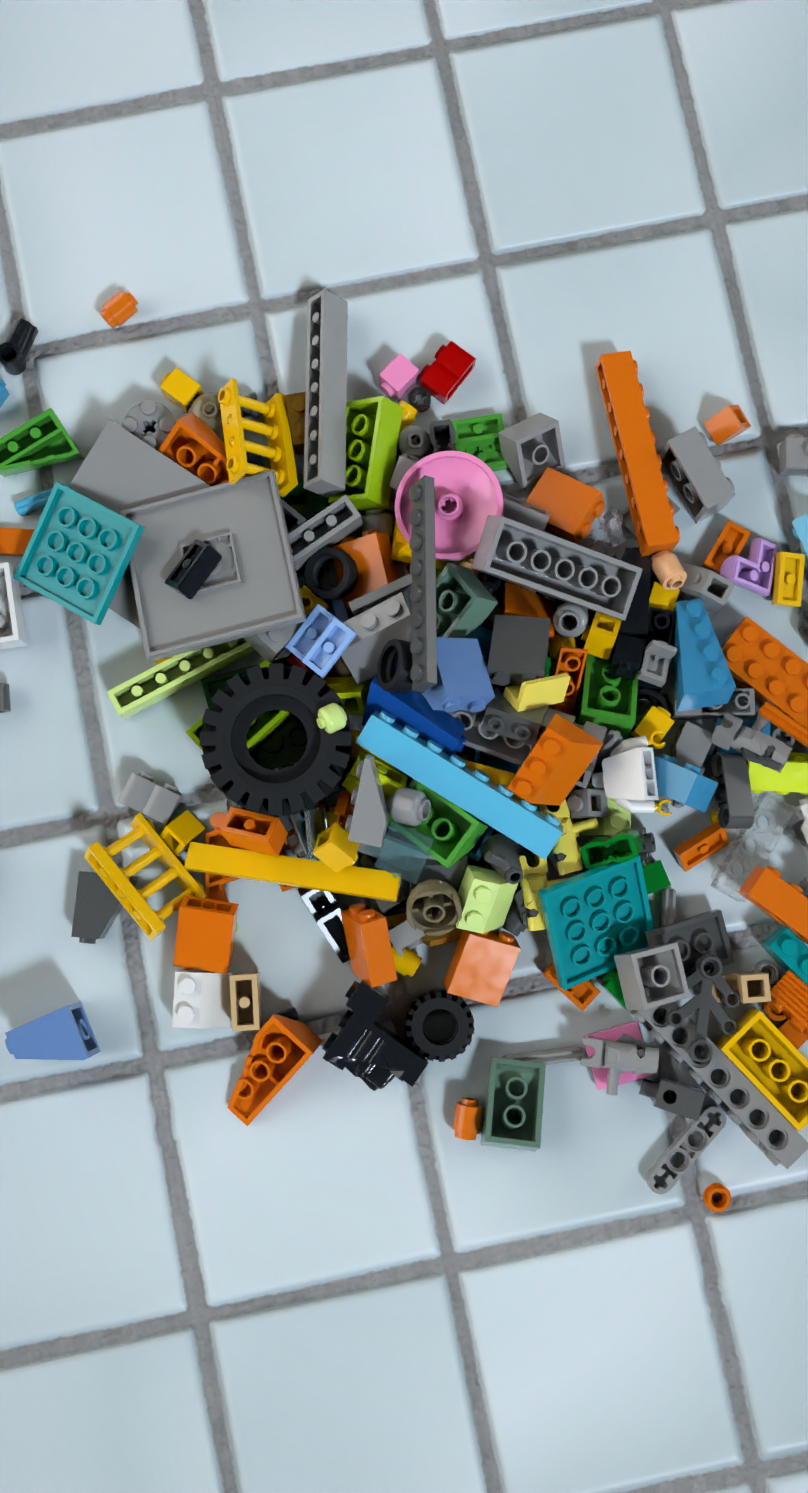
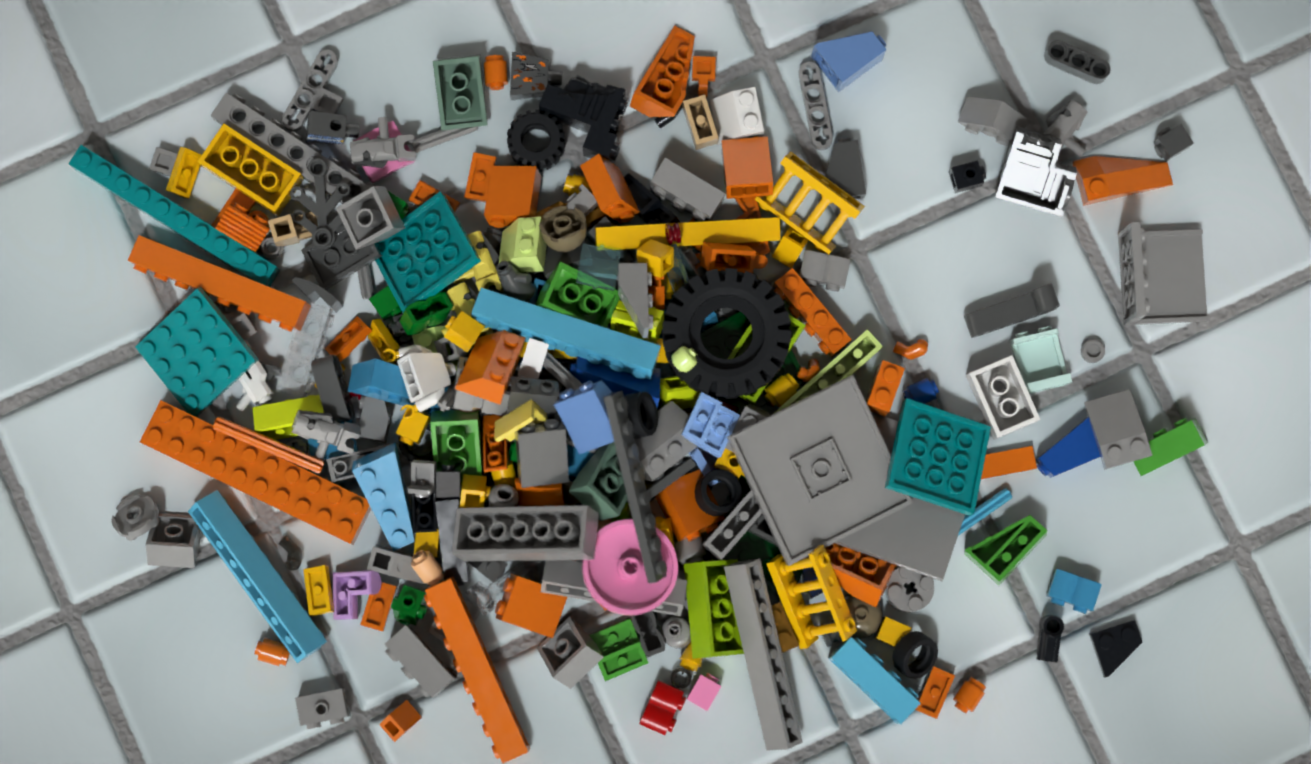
camera: 165 degrees right, 0 degrees up
(74, 685) = (913, 351): none -> orange arm
(81, 636) = (921, 391): none -> blue brick
(106, 990) = (813, 106): none -> light grey beam
(118, 645) = (884, 387): none -> orange brick
(155, 321) = (935, 692): none -> orange plate
(164, 359) = (906, 647): none -> black tyre
(176, 752) = (812, 313): none -> orange brick
(191, 689) = (807, 374): none -> orange arm
(193, 569) = (833, 460): black slope -> none
(212, 339) = (874, 680): none -> medium azure brick
(226, 1061) = (703, 71): none -> orange plate
(230, 668) = (781, 390): none -> yellow brick
(281, 921) = (686, 191): none -> light grey brick
(309, 872) = (673, 233): none -> dark red bush
(409, 806) = (603, 303): light grey head -> none
(427, 1103) = (531, 76): none -> dark grey torso
(477, 743) = (560, 372): none -> light grey axle
(504, 761) = (533, 359): none -> white sticker
(513, 999) = (479, 177): none -> orange plate
(576, 814) = (463, 331): none -> yellow brick
(664, 833) = (382, 339): none -> yellow plate
(669, 1128) = (327, 102): none -> light grey plate
(701, 544) = (409, 606): none -> green brick
(724, 1201) = (274, 52): orange plate -> none
(733, 909) = (314, 291): none -> dark grey slope

